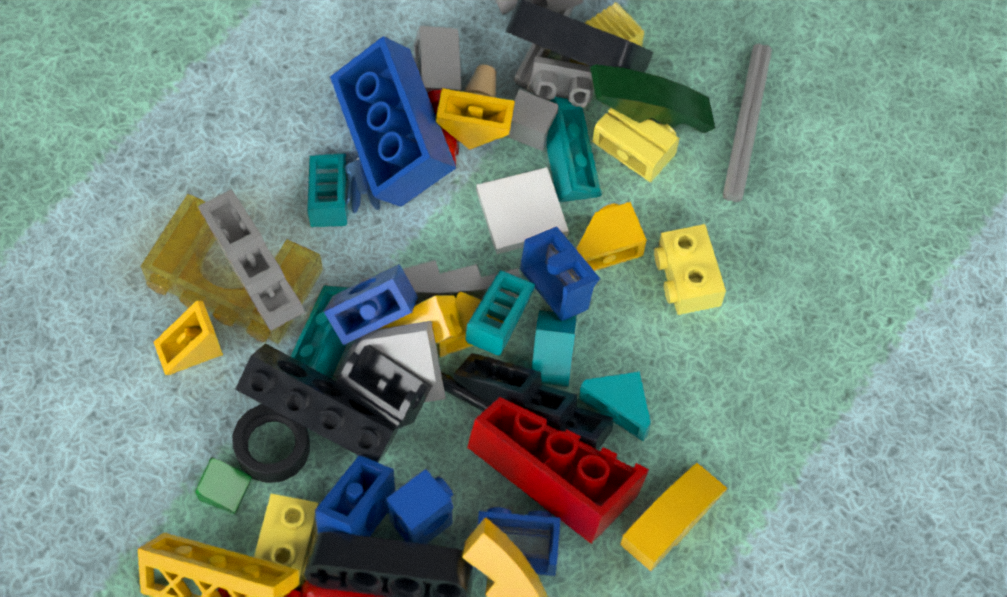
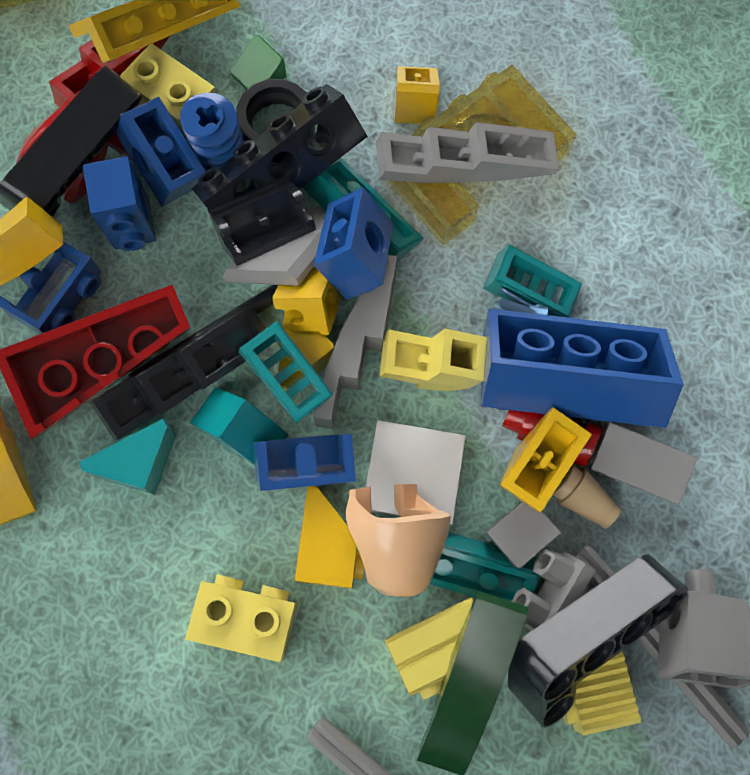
camera: 115 degrees right, 10 degrees up
(319, 463) = (211, 128): none -> blue piece
(431, 220) = (439, 363): none -> light yellow brick
(597, 177) = (398, 551): none -> light nougat piece

